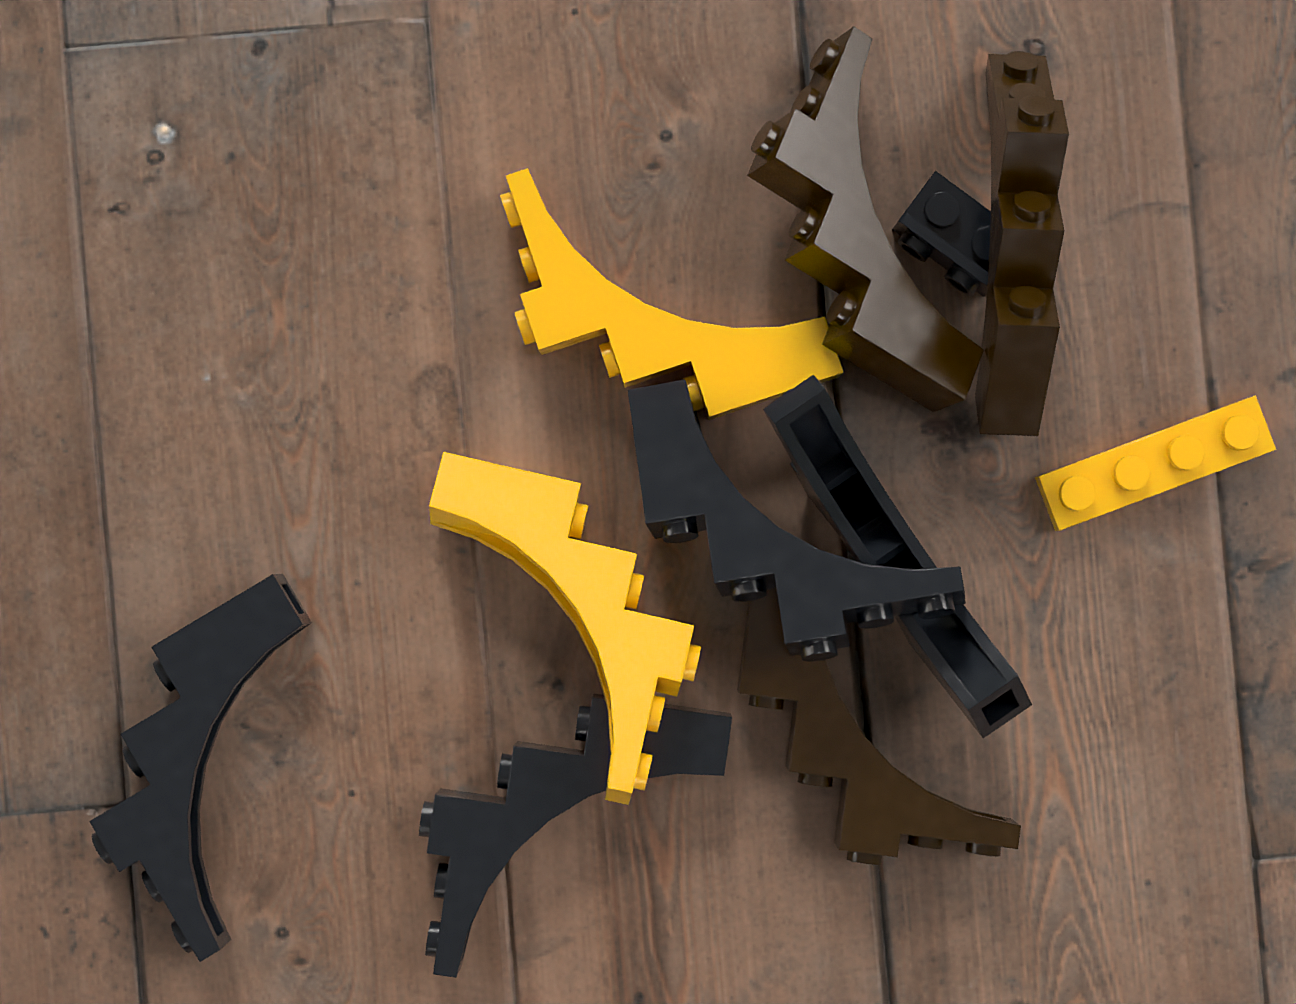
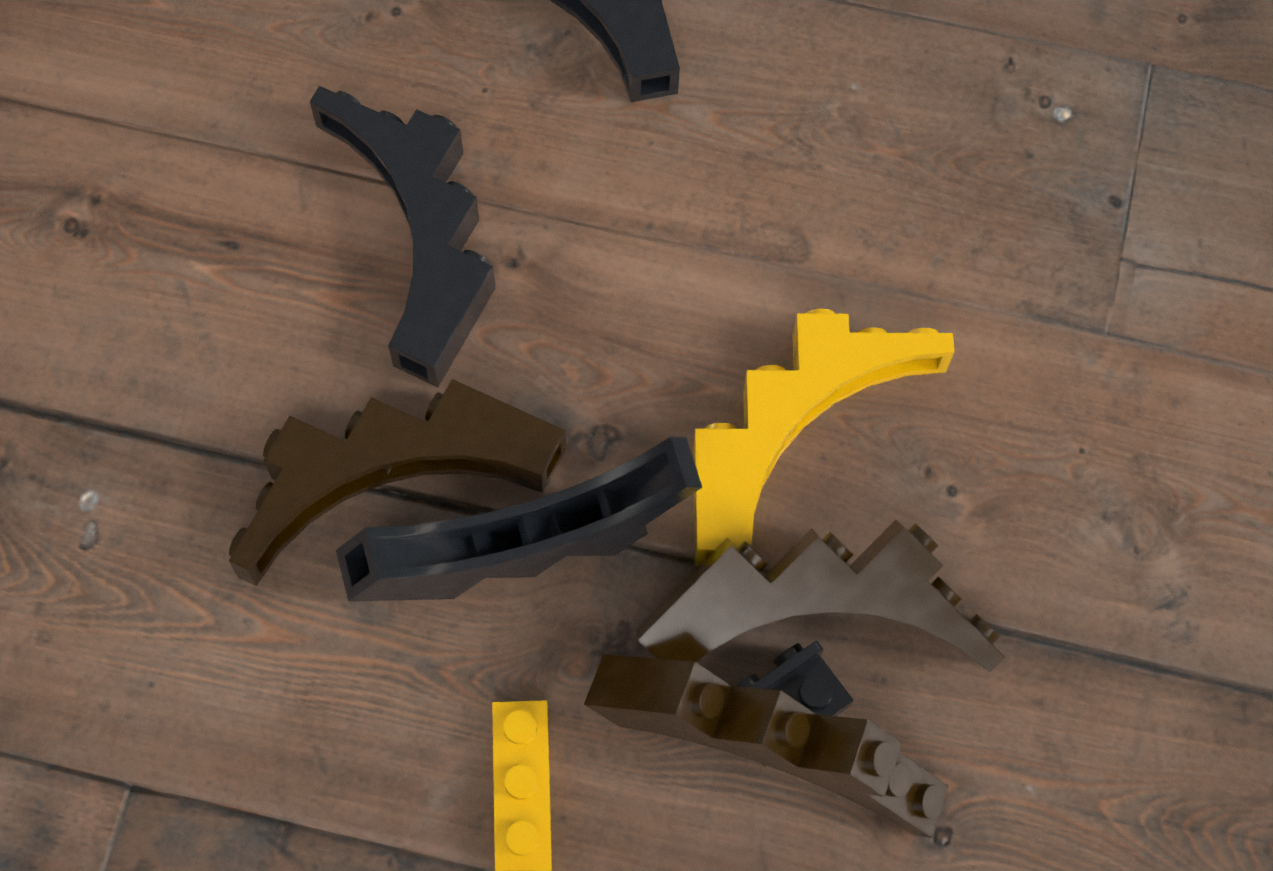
camera: 100 degrees right, 20 degrees down
(634, 653) = (578, 295): yellow arch -> none
(749, 553) = (632, 393): black arch -> none

